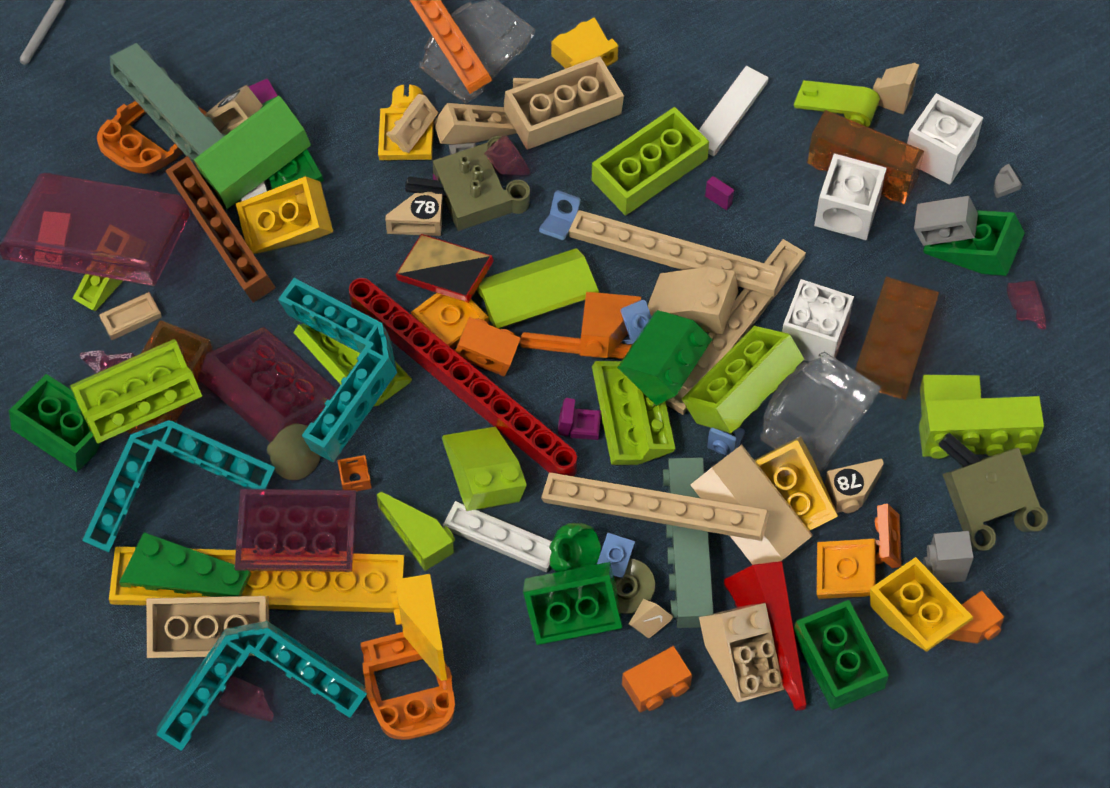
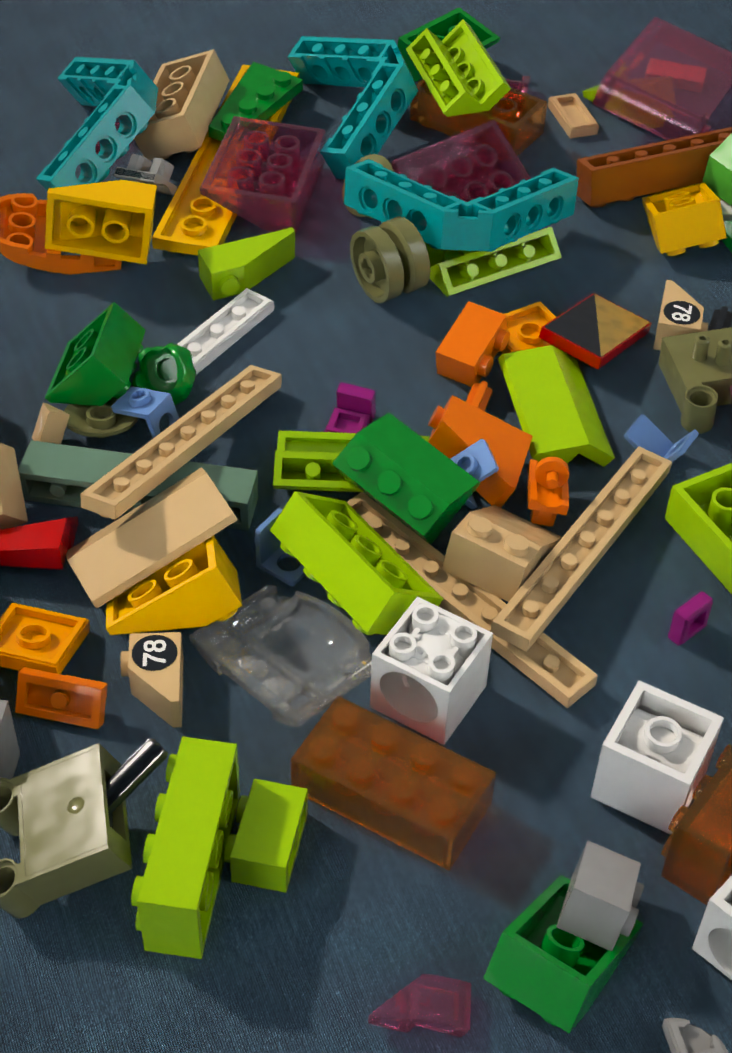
camera: 100 degrees right, 15 degrees down
(326, 632) = (140, 171): none -> light grey hips
(360, 468) = (336, 227): orange piece -> none
(407, 412) = (390, 259): none -> olive wheel
(465, 389) = (423, 327): red beam -> none
(484, 468) = (306, 320): lime slope -> none
(632, 279) = (547, 490): none -> orange hips

